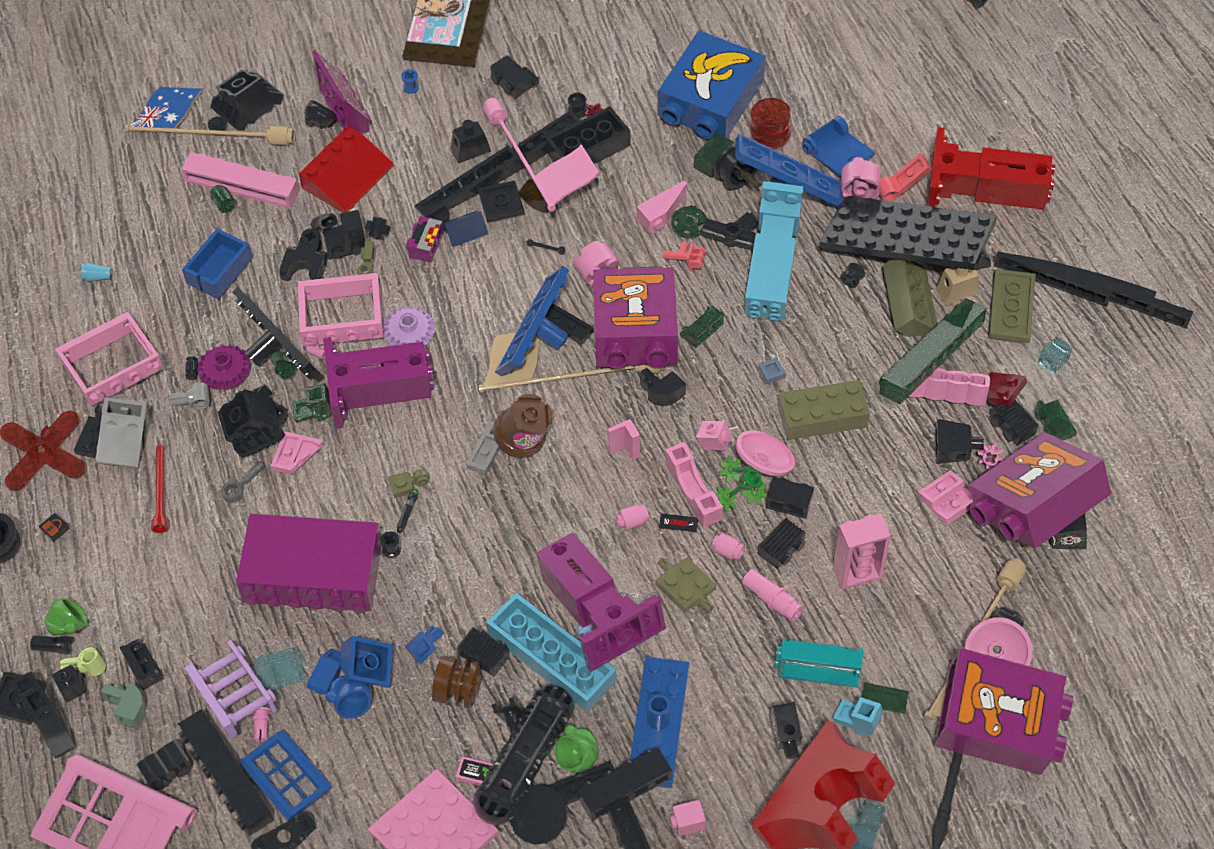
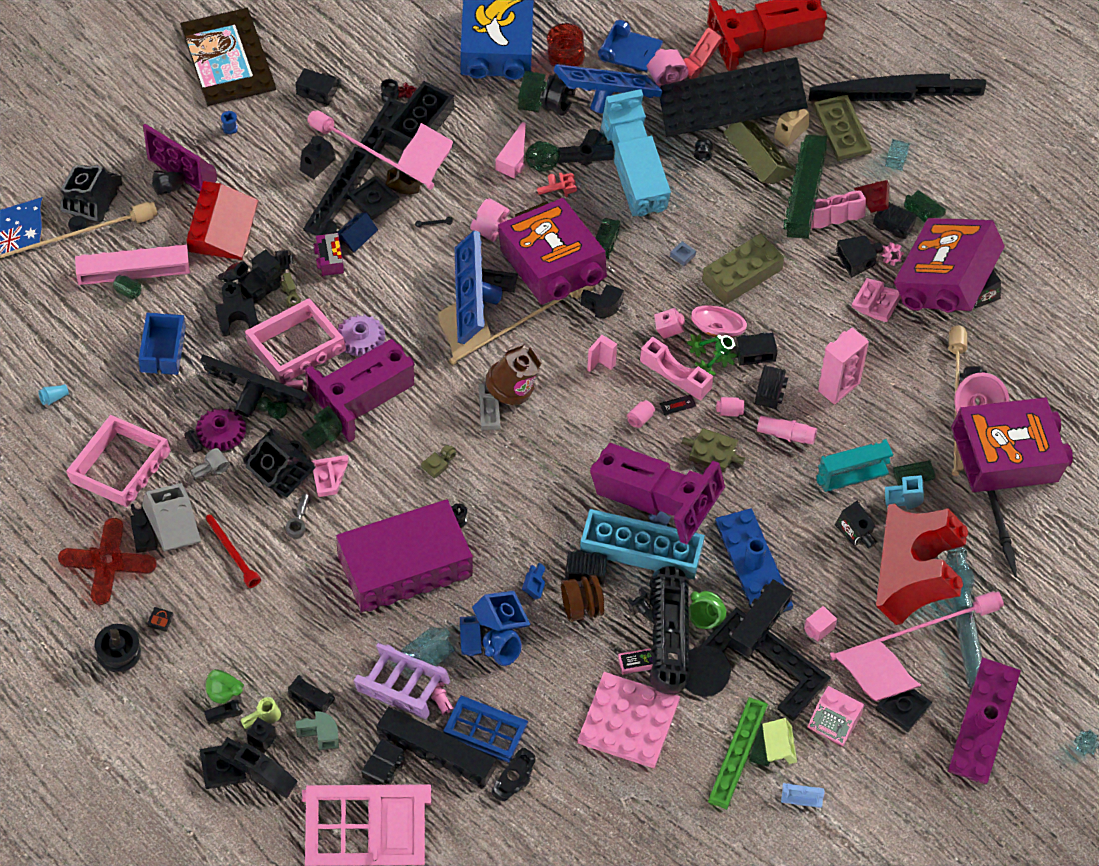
camera: 30 degrees left, 0 degrees up
(412, 498) = (453, 483): black piece -> none

